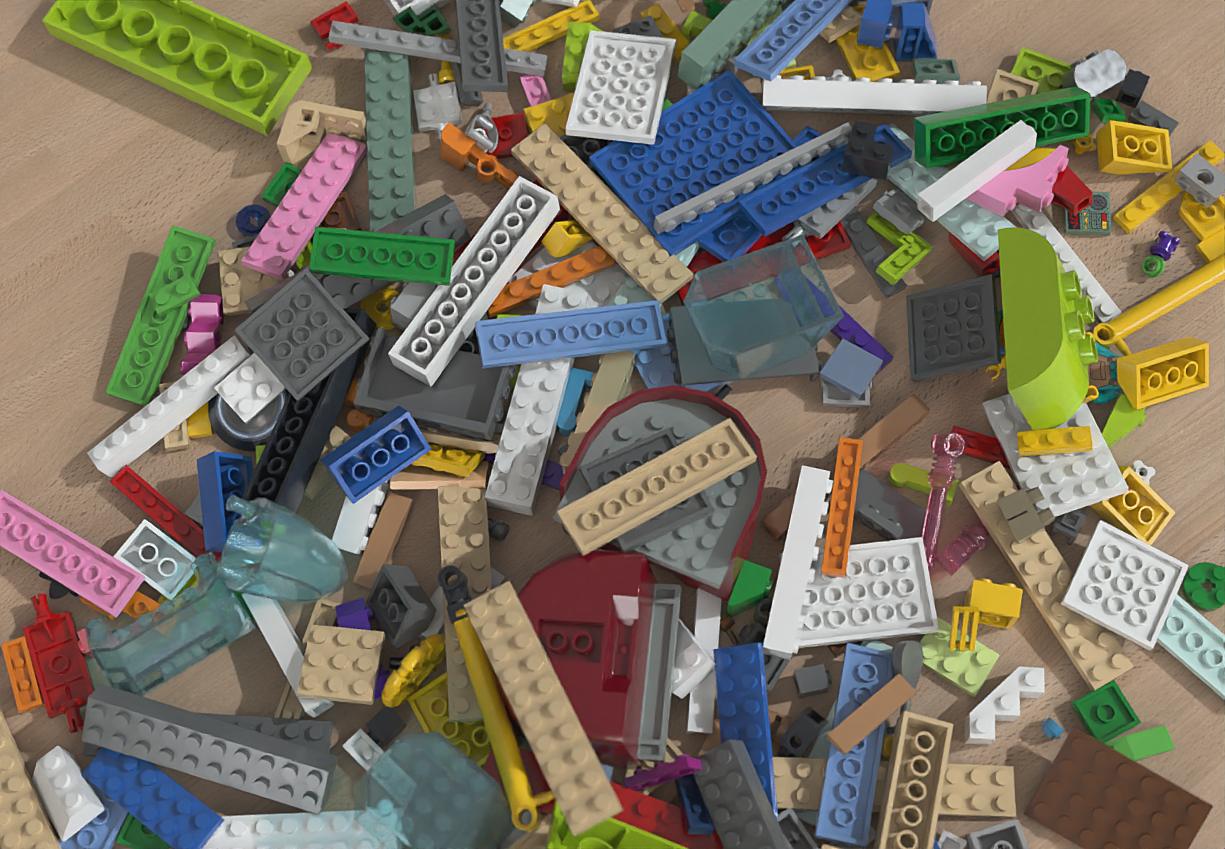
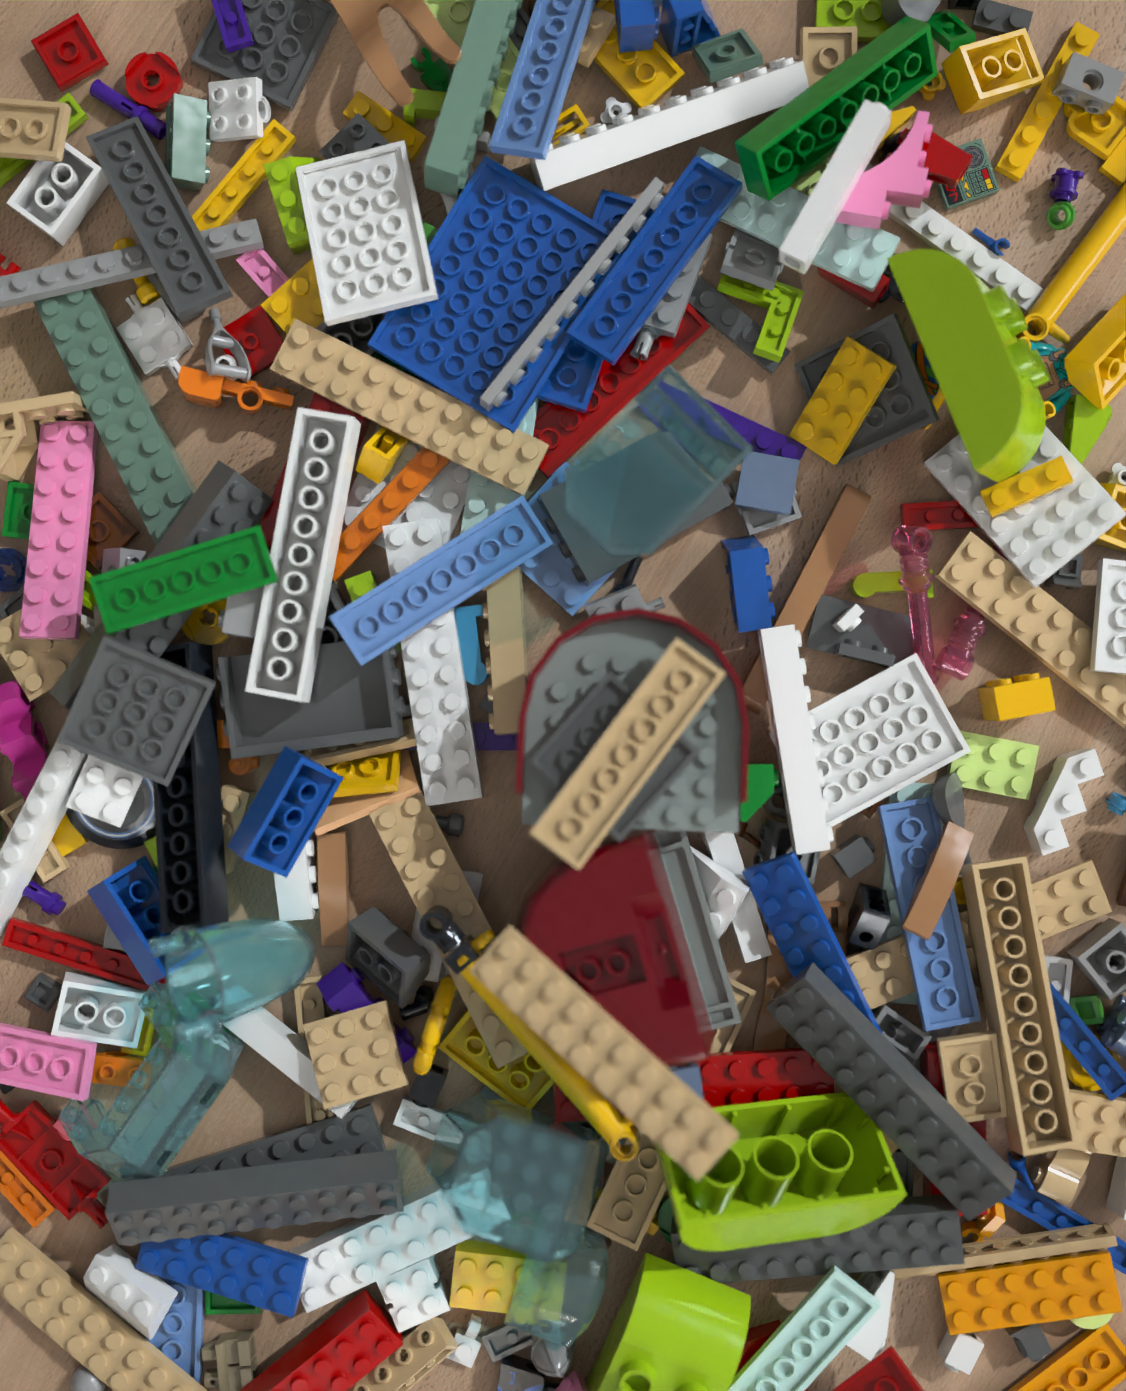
camera: 30 degrees left, 20 degrees up
(120, 532) = (44, 992): none -> dark grey tile
(161, 465) = (49, 901): none -> dark purple animal
(428, 23) = (91, 235): dark green brick -> none
(663, 772) = (746, 1030): magenta plate -> none
(693, 806) = (789, 1052): dark blue plate -> none
(808, 435) = (749, 583): none -> blue wedge
(842, 507) = (819, 655): orange plate -> none
(866, 156) = (692, 215): black brick -> none
(877, 491) = (849, 619): none -> white plate
(931, 328) = (842, 400): none -> yellow plate
(962, 644) = (1004, 741): yellow tile -> none
(1030, 522) = (1022, 592): dark tan hips -> none
(1100, 268) = (1004, 243): none -> blue hand

